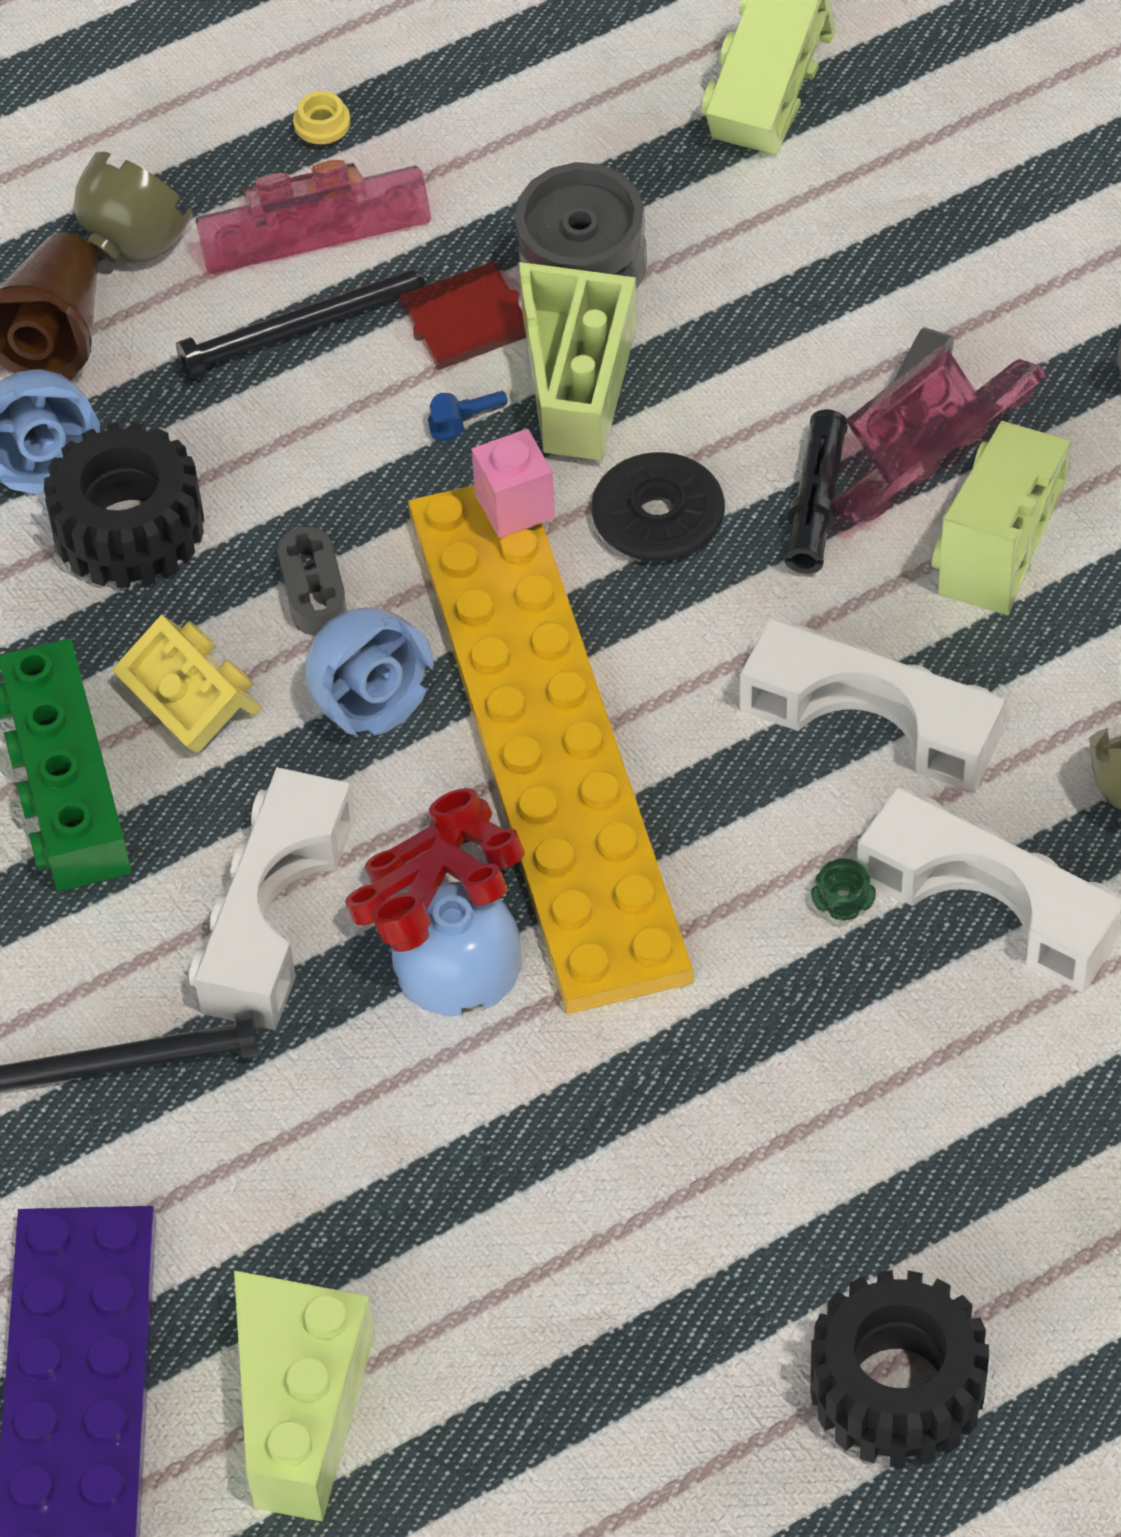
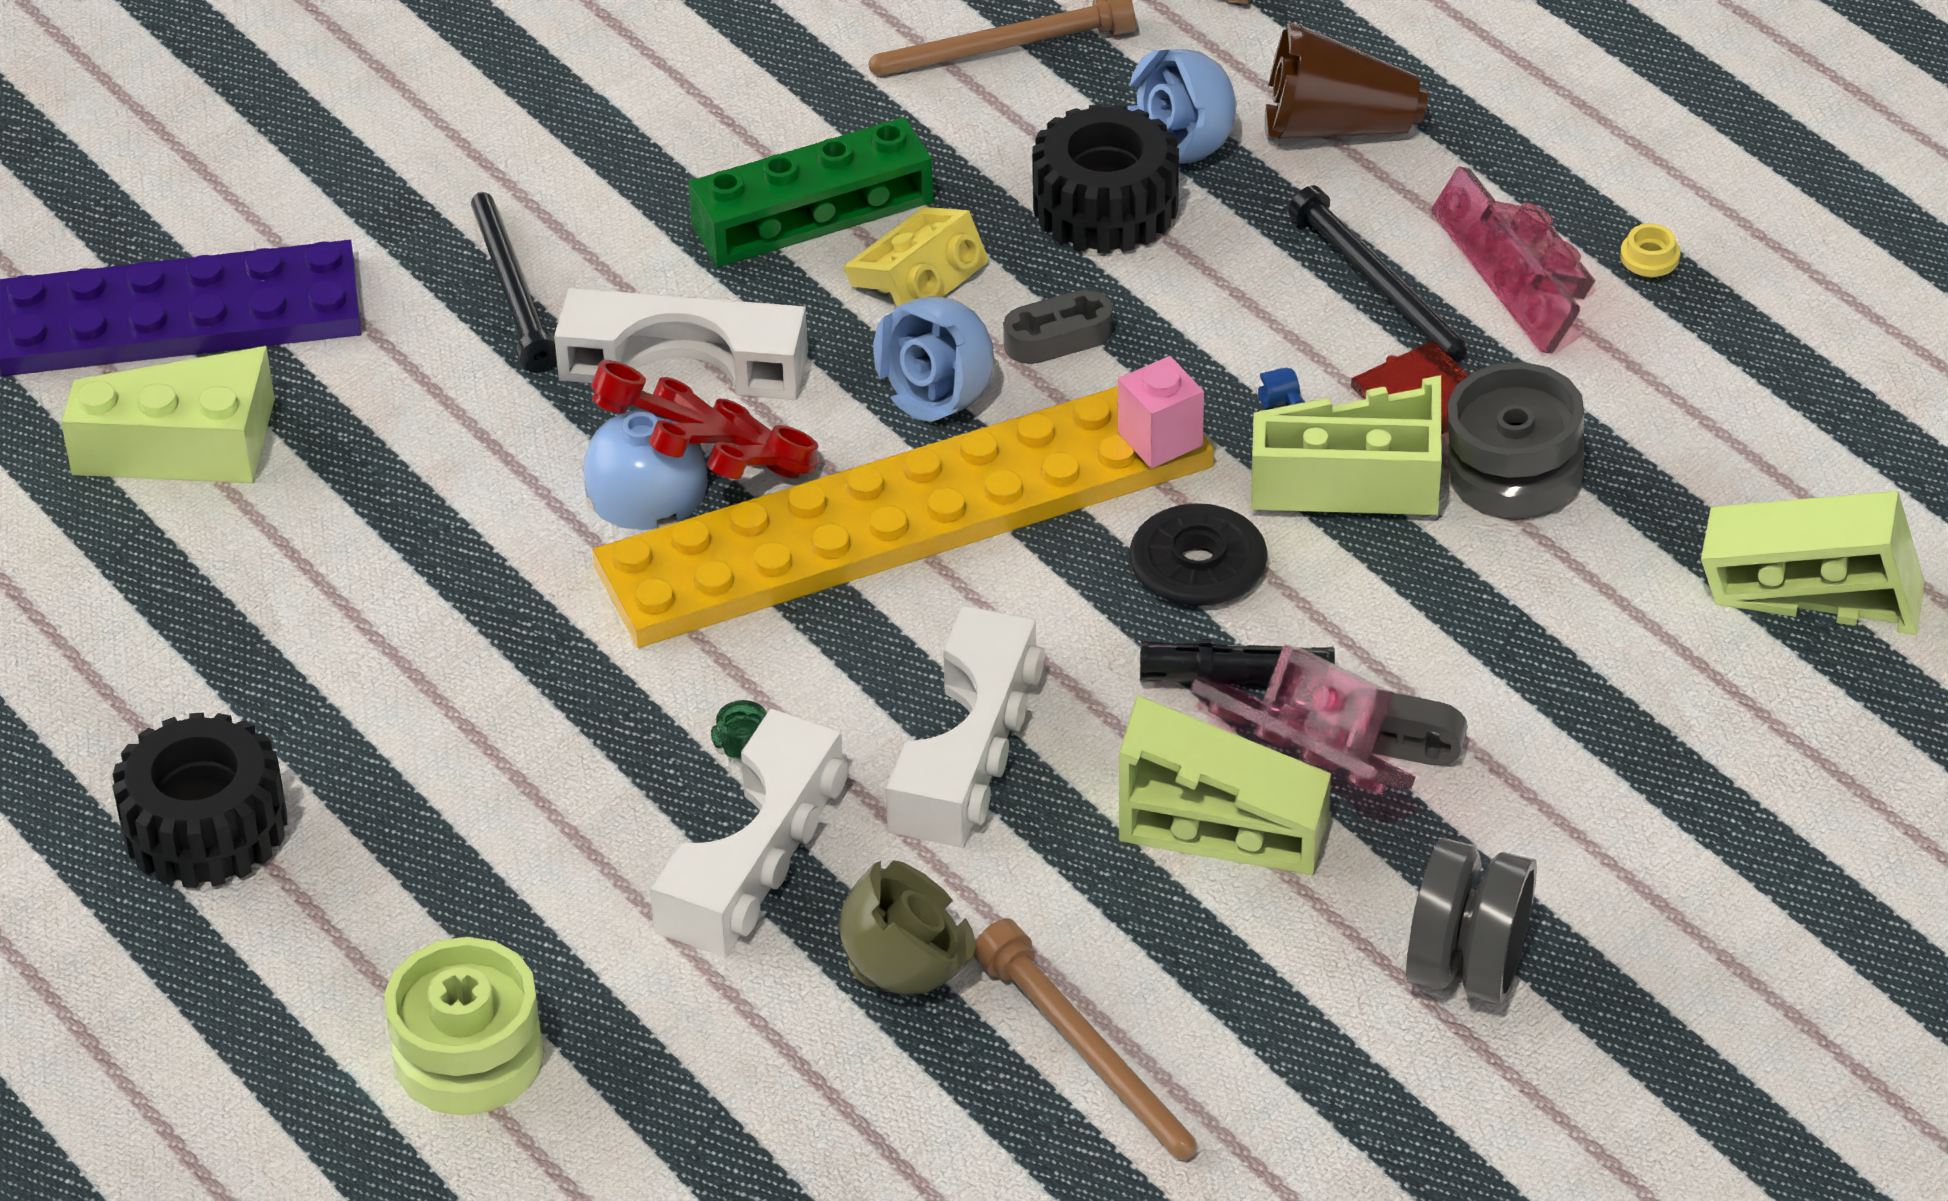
camera: 80 degrees right, 10 degrees down
(127, 211) = (1470, 121): olive cylinder -> none

